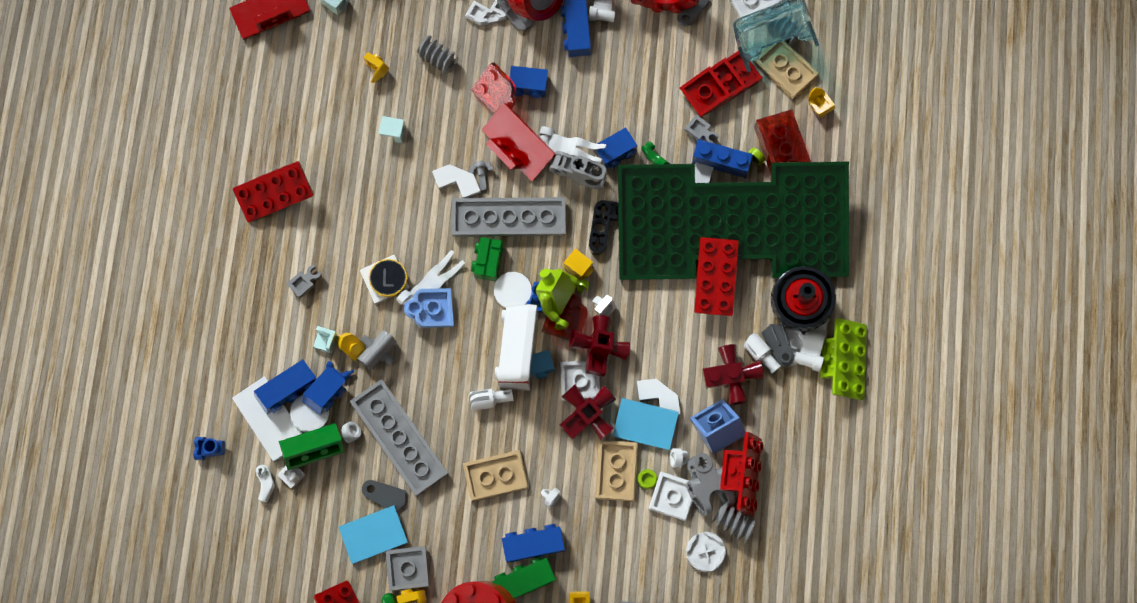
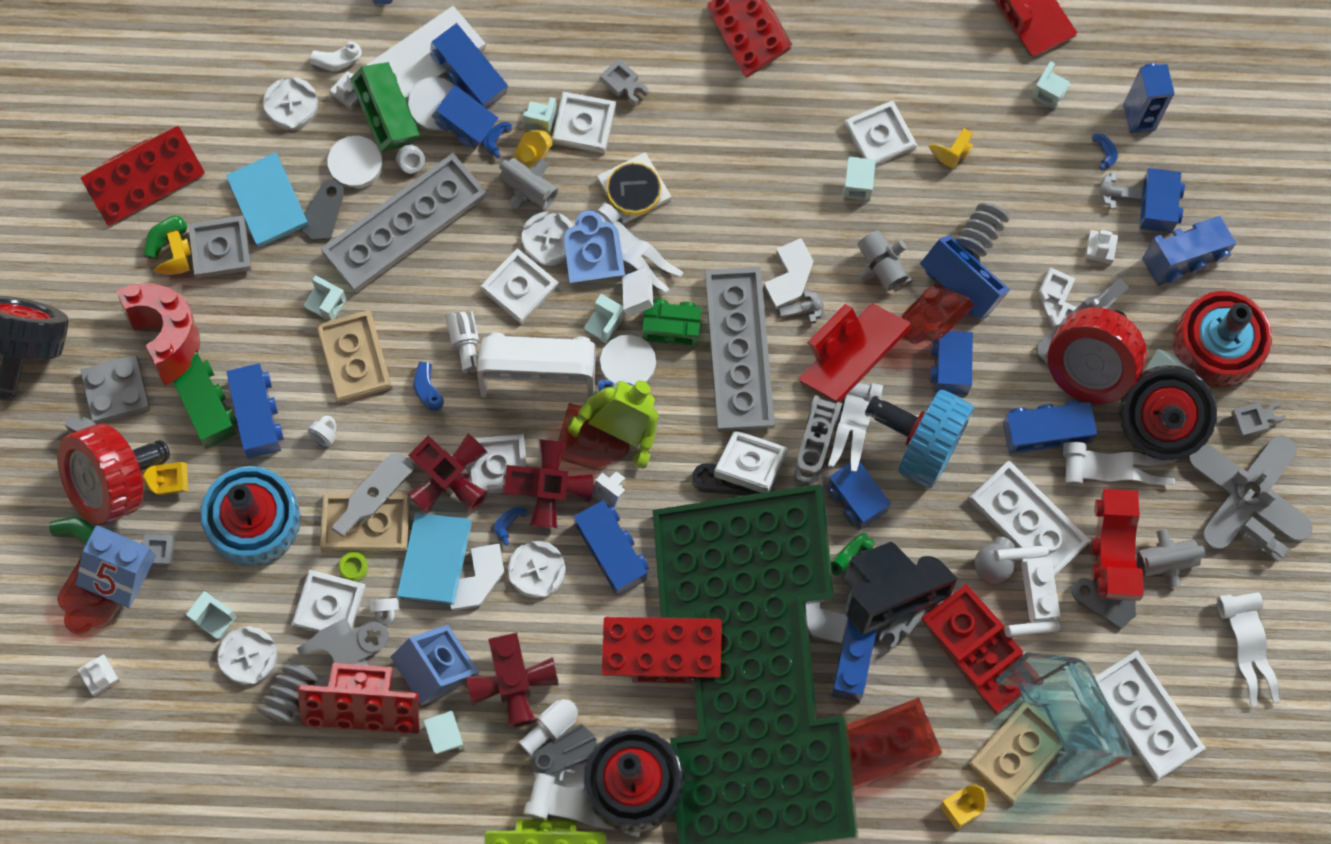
camera: 80 degrees right, 5 degrees down
(297, 517) = (290, 103): none -> white tile
(331, 311) = (583, 122): none -> white tile
(348, 471) = (355, 162): none -> white tile
(358, 114) = (880, 133): none -> white tile
(417, 341) = (544, 237): none -> white tile
(451, 360) = (519, 286): none -> white tile
(453, 494) = (325, 299): none -> light aqua panel
(454, 118) = (883, 261): none -> light grey pin
(465, 279) = (637, 291): none -> white tile
(469, 67) = (964, 275): none -> blue brick
(481, 303) = (605, 319): none -> light aqua panel
(524, 427) = (424, 390): none -> blue arm
(541, 365) = (517, 404): dark azure brick -> none
(578, 265) = (671, 450): yellow brick -> none
(586, 95) = (930, 436): none -> dark azure wheel
(590, 214) = (750, 462): none -> white tile
(592, 455) = (383, 482): none -> light grey piece
(610, 546) = (250, 516): none -> dark azure wheel
(620, 377) = (505, 521): none -> blue piece
(636, 47) = (1028, 516): none -> white tile
(643, 307) = (611, 547): none -> blue brick
(654, 358) = (536, 569): none -> white tile
(665, 68) = (989, 567): none -> light grey piece
(678, 575) = (211, 615): none -> light aqua panel
(681, 130) = (891, 586): none -> black brick
(685, 43) = (1039, 590): none -> white plate
(757, 157) = (865, 706): lime tile -> none
(765, 420) = (443, 733): none -> light aqua panel

